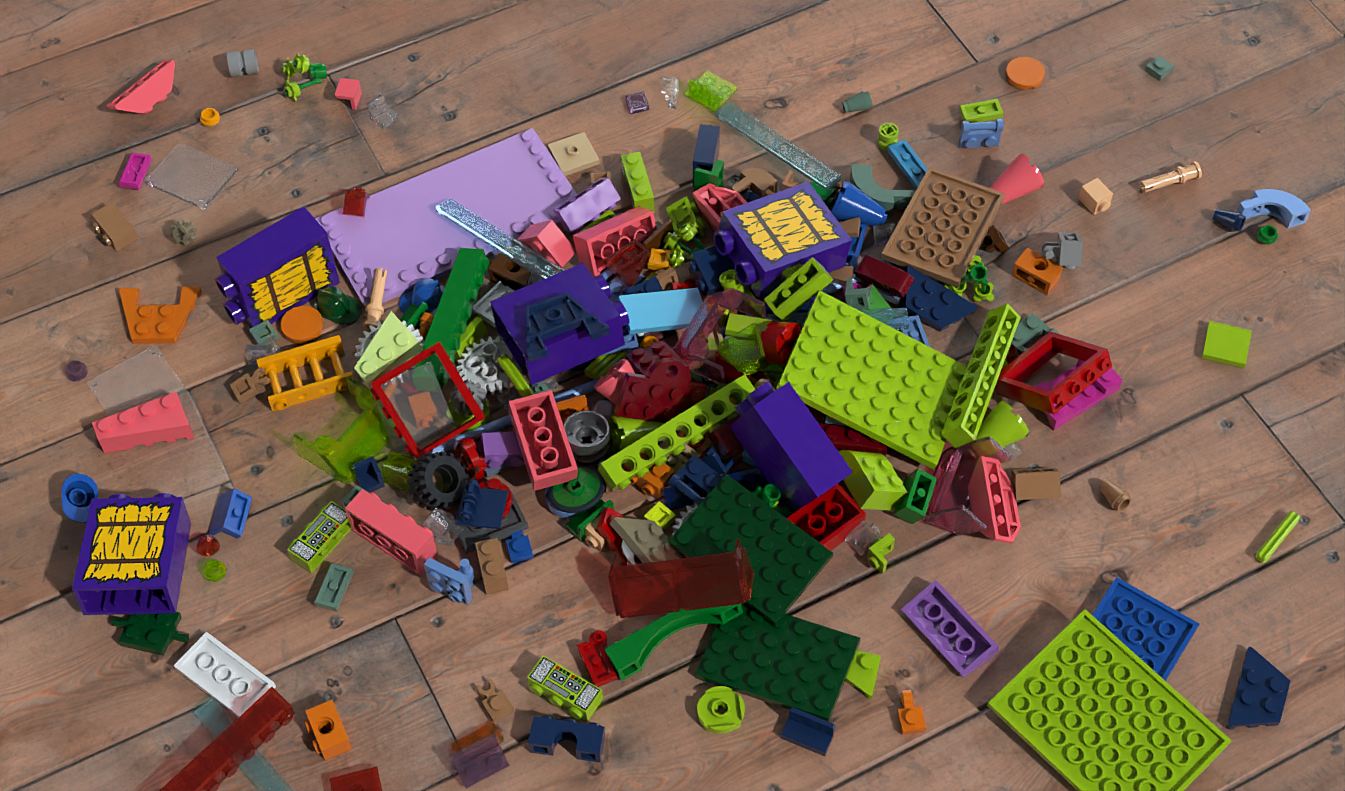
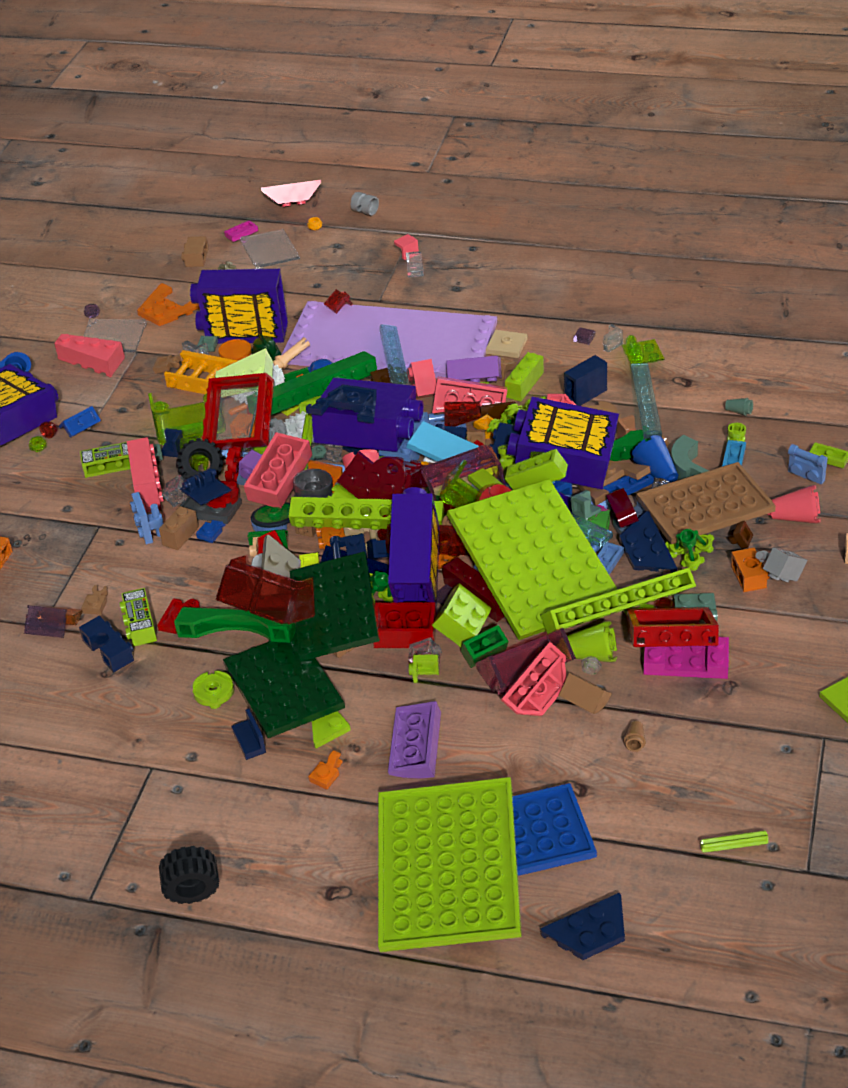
camera: 45 degrees right, 15 degrees down
(301, 64) = (388, 219): lime plant -> none
(334, 587) = (84, 488): sand green plate -> none
(704, 177) = (574, 390): green panel -> none

